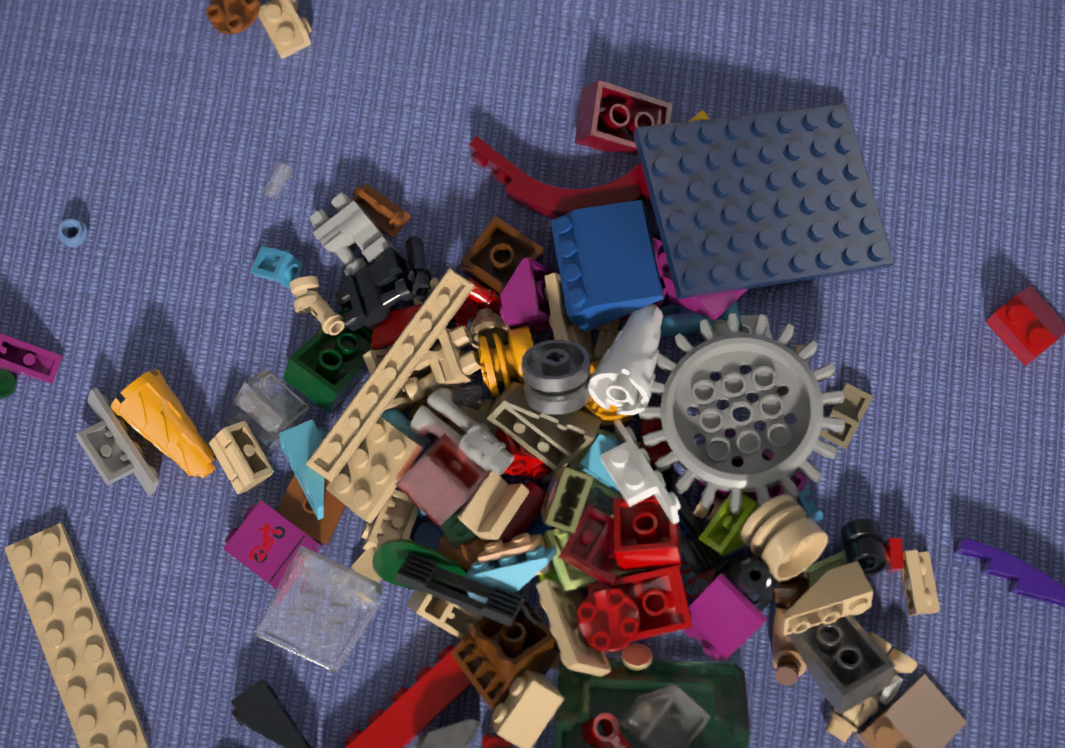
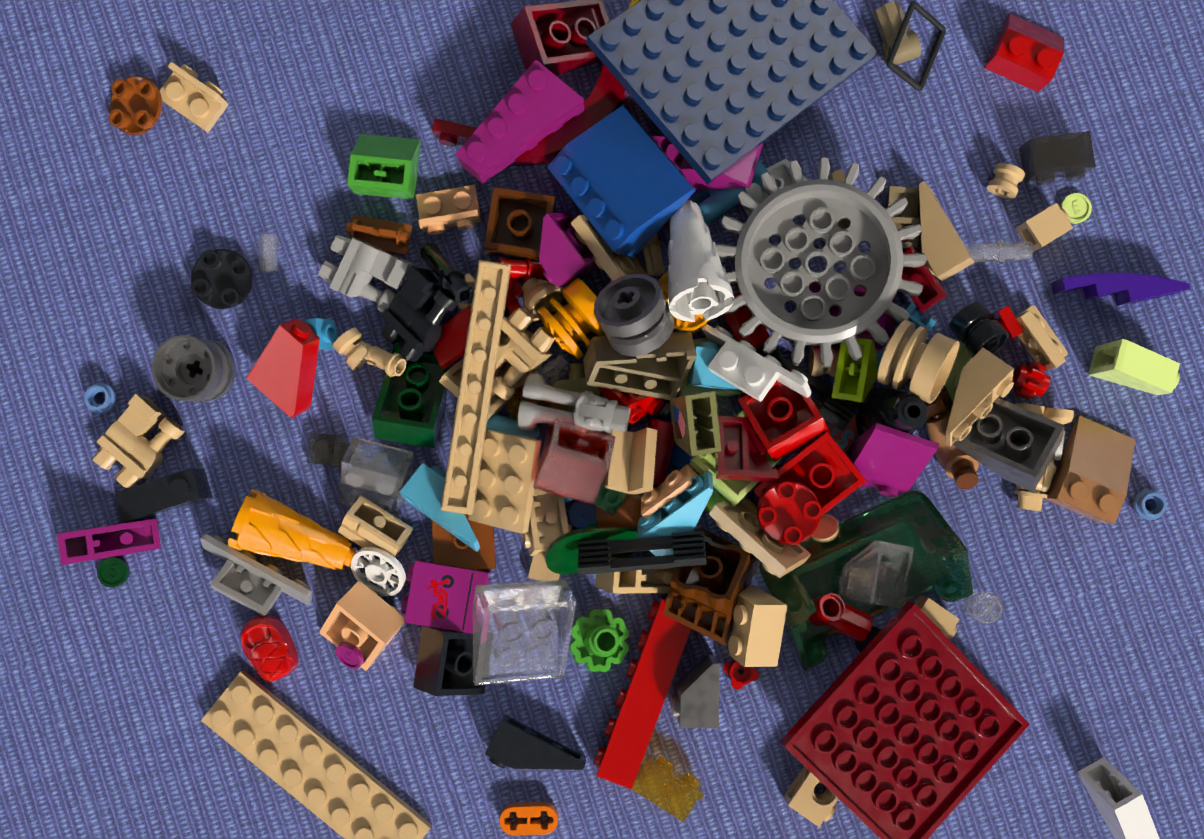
camera: 30 degrees left, 10 degrees up
(75, 280) = (127, 441): none -> tan hips
(80, 338) = (164, 494): none -> black slope
(96, 514) = (269, 647): none -> red piece
(151, 236) = (177, 371): none -> flat silver wheel
(160, 556) = (349, 655): none -> magenta piece
(185, 535) = (363, 621): none -> light nougat slope
(224, 494) = (378, 570): none -> white wheel
(227, 183) = (221, 278): none -> black dish
(237, 368) = (327, 449): none -> clear smoke bracket
(240, 605) = (445, 663): none -> black slope
(242, 282) = (288, 367): none -> slope
(383, 654) = (598, 640): none -> bright green plant
(413, 156) = (384, 166): none -> bright green slope
(449, 217) = (448, 209): none -> light nougat bracket
(543, 172) = (525, 115): none -> magenta wedge
(833, 486) = (932, 289): none -> dark red slope
(868, 451) = (939, 238): none -> tan slope
(892, 617) = (1031, 380): none -> red gear
(914, 258) = (914, 5): none -> black piece
(915, 262) = (889, 20): none -> dark tan piece
(919, 489) = (1001, 251): none -> clear pin
(955, 428) = (1006, 180): none -> tan wheel
(971, 486) = (1045, 226): none -> tan brick
(995, 654) = (1134, 367): none -> yellowish green slope
(1010, 485) = (1077, 207): none -> yellowish green piece
(1011, 430) = (1057, 157): none -> clear smoke brick

